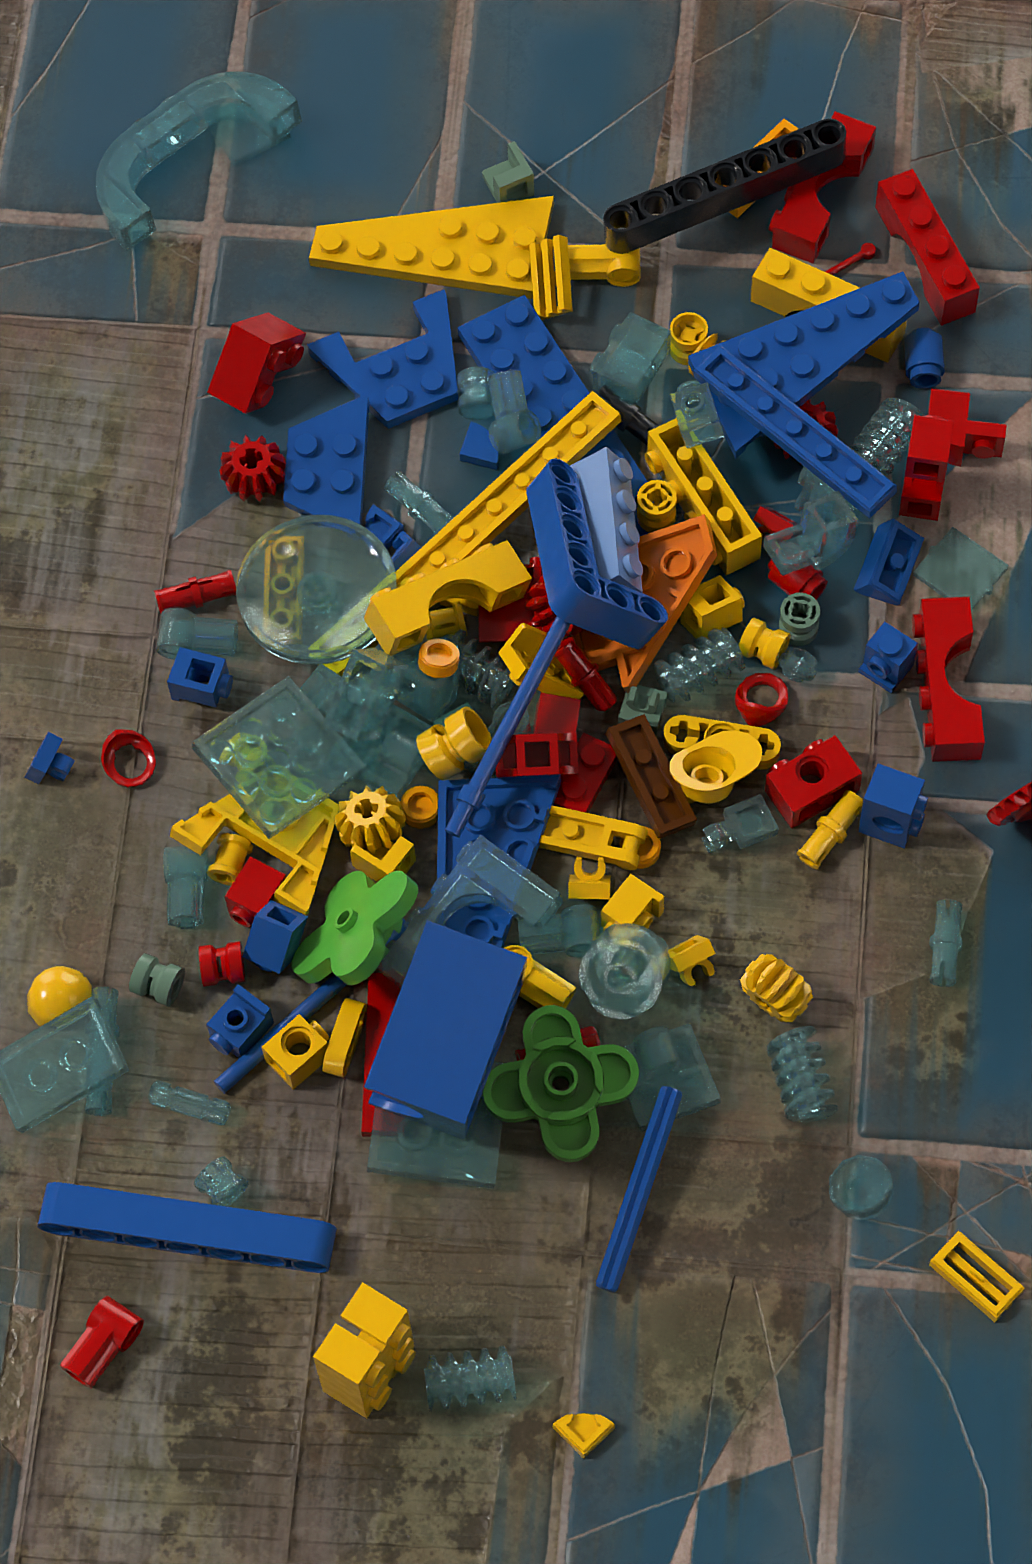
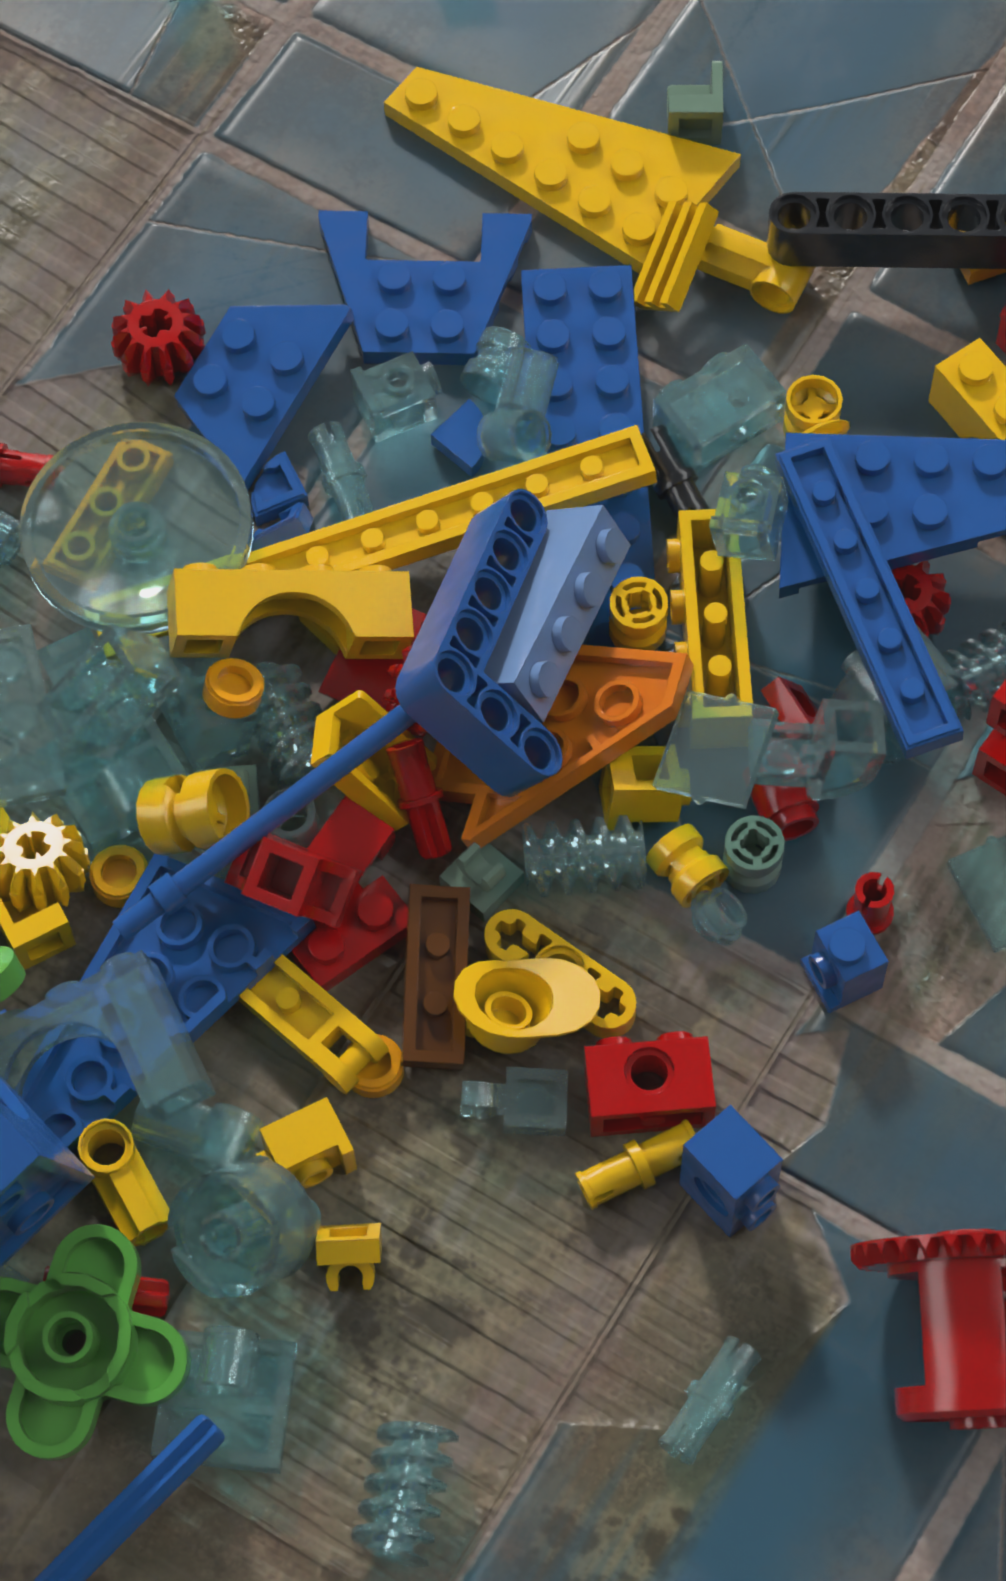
camera: 25 degrees right, 0 degrees up
(251, 359) = (230, 194): red brick -> none
(420, 448) = (396, 395): none -> clear light blue brick
(446, 621) = (285, 644): yellow bush -> none
(589, 885) = (271, 1087): yellow tile -> none
(751, 563) = (716, 749): none -> clear light blue piece
(758, 714) = (627, 960): red piece -> none
(776, 988) = (435, 1352): yellow gear -> none
(885, 612) = (876, 899): none -> red pin
(889, 562) = (922, 833): blue slope -> none
(953, 723) = (940, 968): red arch -> none

